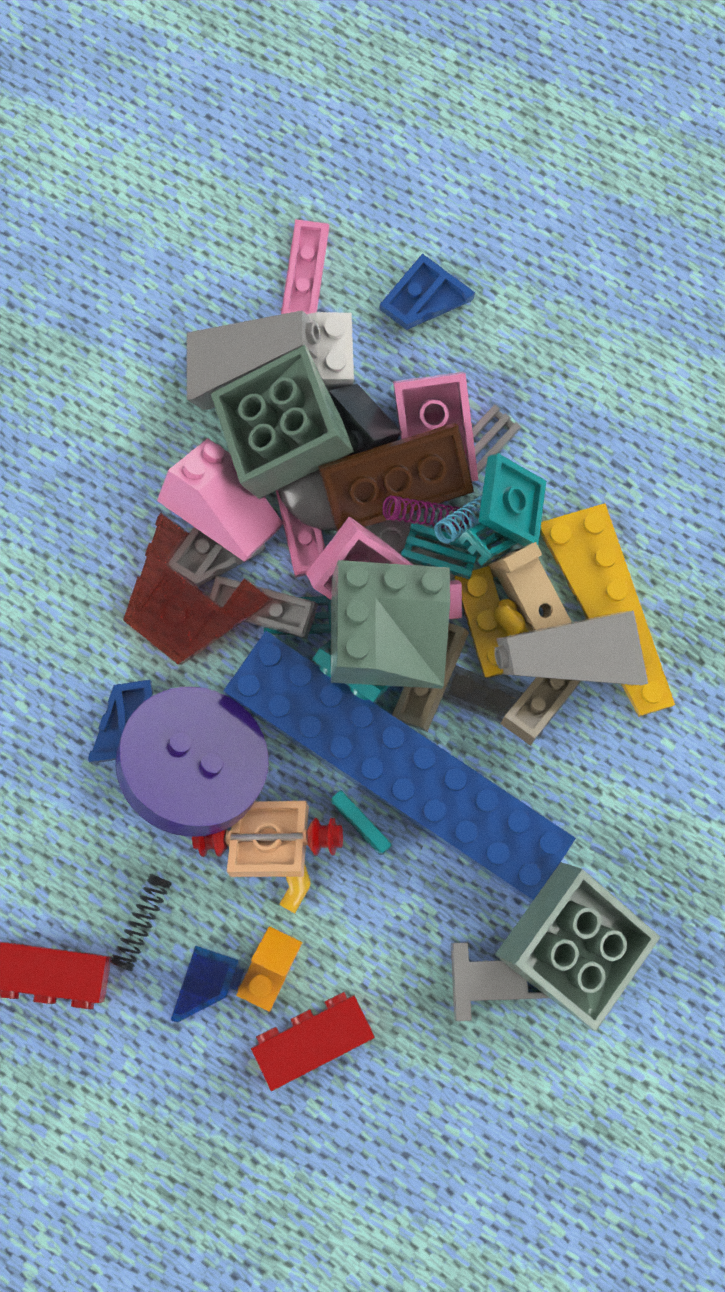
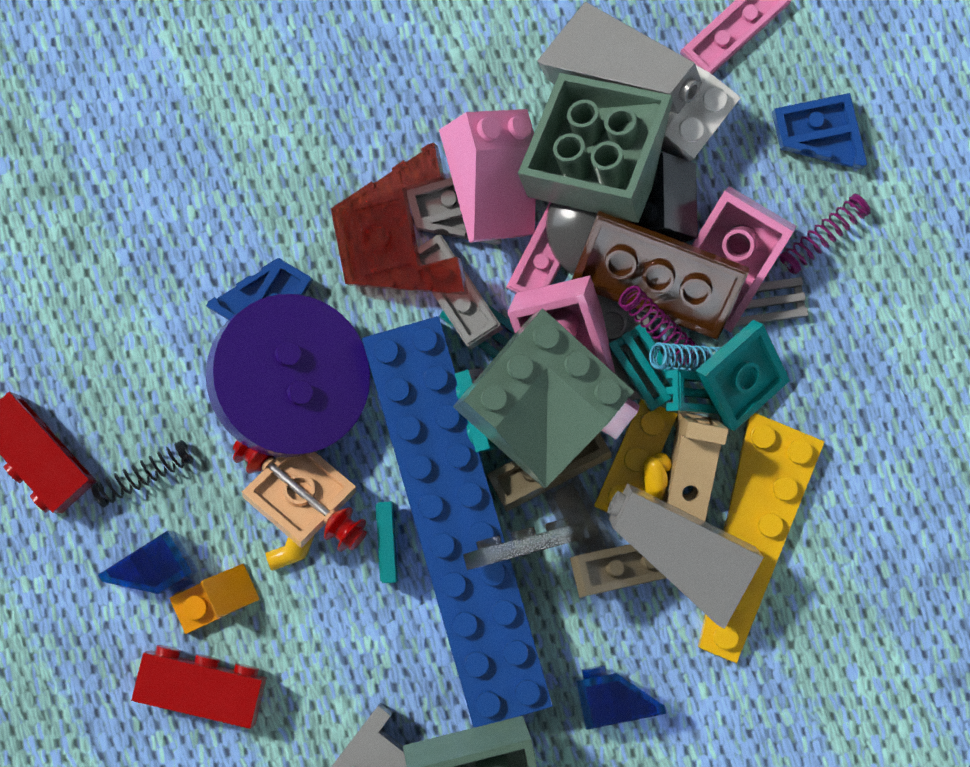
camera: 40 degrees right, 5 degrees up
(460, 738) = (525, 542): none -> clear smoke plate
(482, 398) = (853, 200): none -> magenta piece
(611, 800) = (612, 699): none -> clear blue slope

